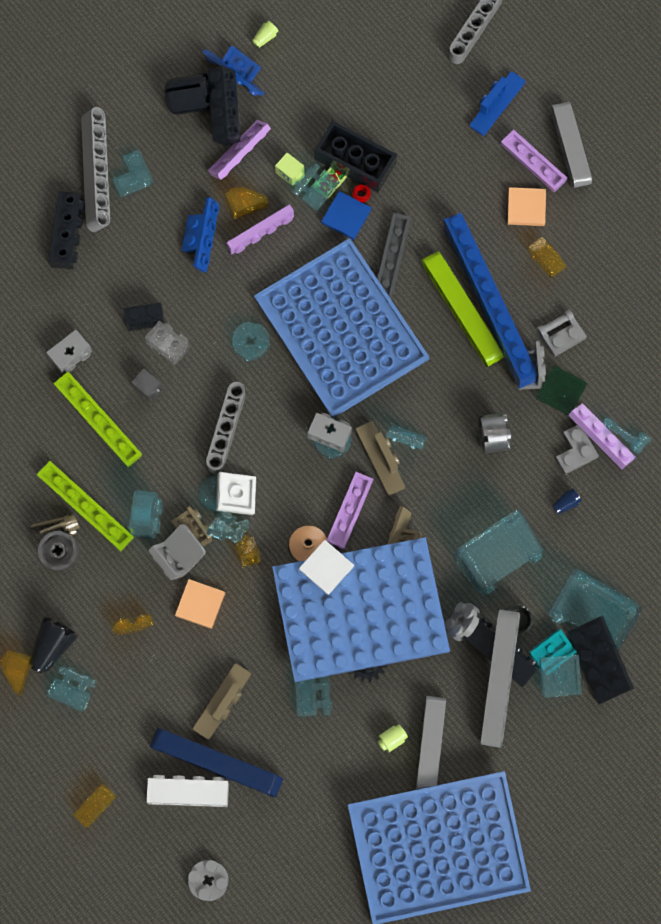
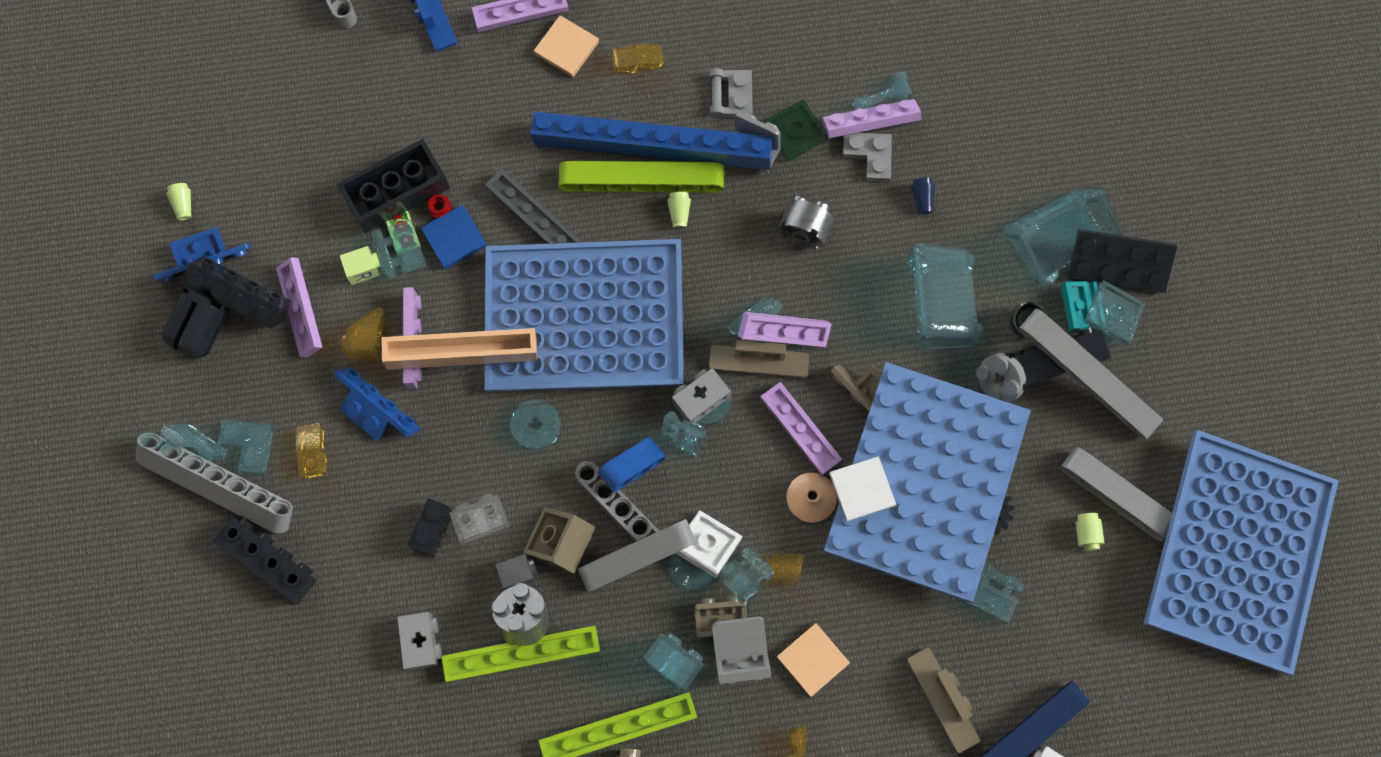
camera: 60 degrees left, 0 degrees up
(116, 137) = (188, 436): none -> clear light blue plate
(120, 403) = (520, 615): none -> flat silver brick
(149, 214) = (310, 451): none -> clear yellow slope
(183, 400) = (559, 539): none -> dark tan slope
(199, 451) = (637, 555): none -> light grey beam
(258, 415) = (631, 464): none -> blue beam
(267, 262) = (459, 348): none -> light nougat brick
(298, 438) = (686, 435): none -> clear light blue plate
(407, 459) = (784, 329): none -> lavender plate
(454, 346) = (679, 208): none -> yellowish green cone

